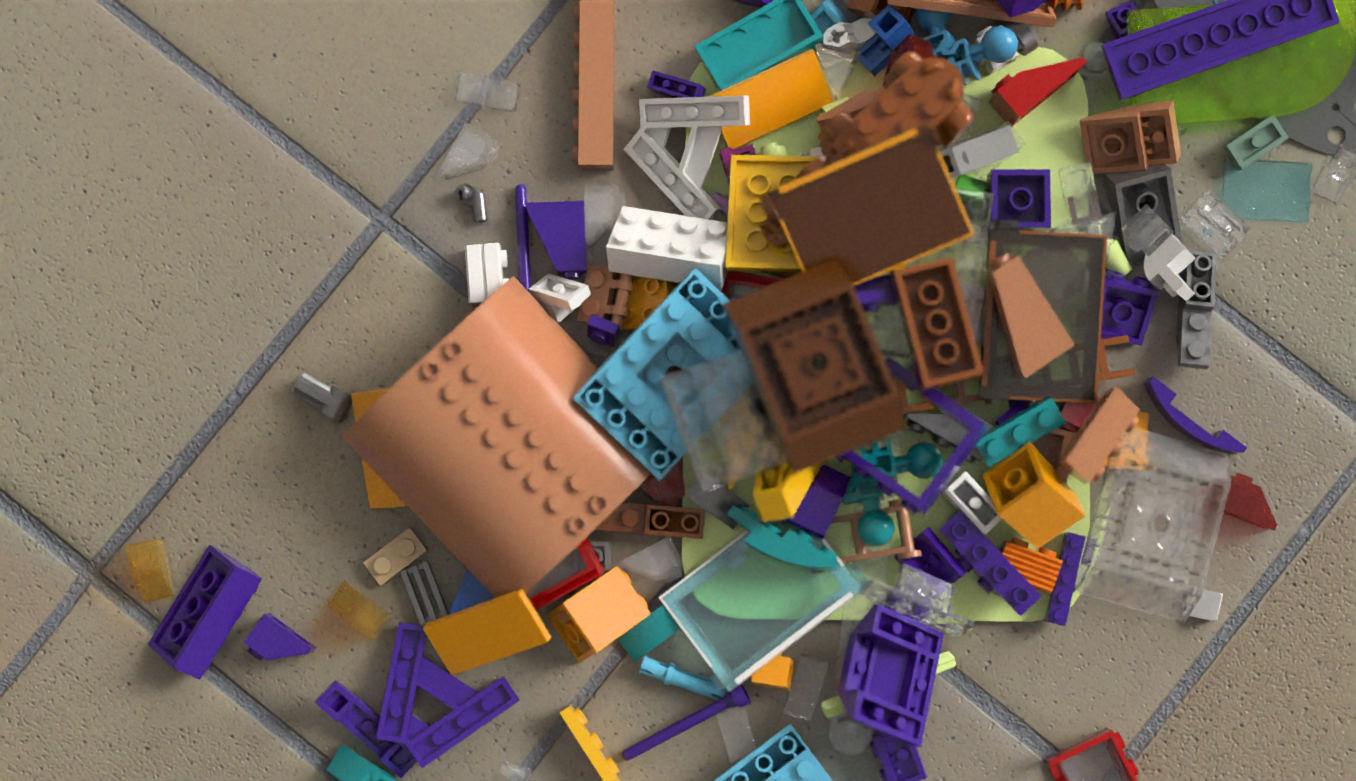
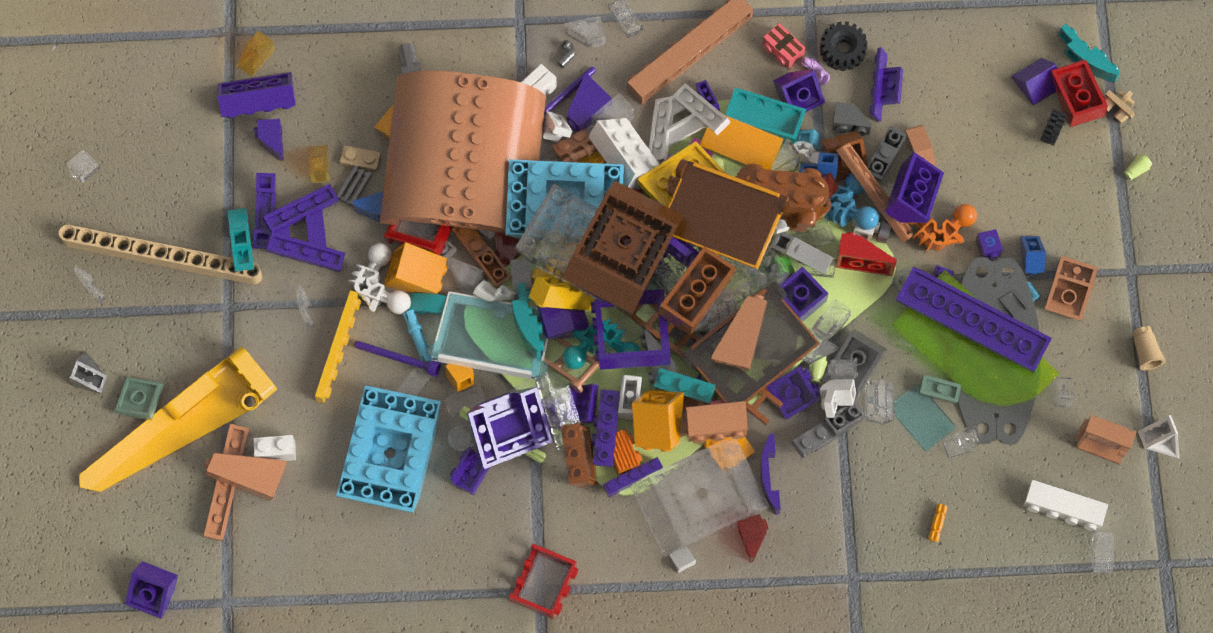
camera: 50 degrees right, 15 degrees down
(487, 632) = (360, 222): light orange tile -> none
(602, 331) = (556, 154): dark purple plate -> none
(617, 666) = (379, 256): none -> white piece
(705, 551) = (491, 294): none -> white slope
(996, 623) = (579, 455): none -> dark orange window
(1131, 138) = (883, 324): nougat slope -> none

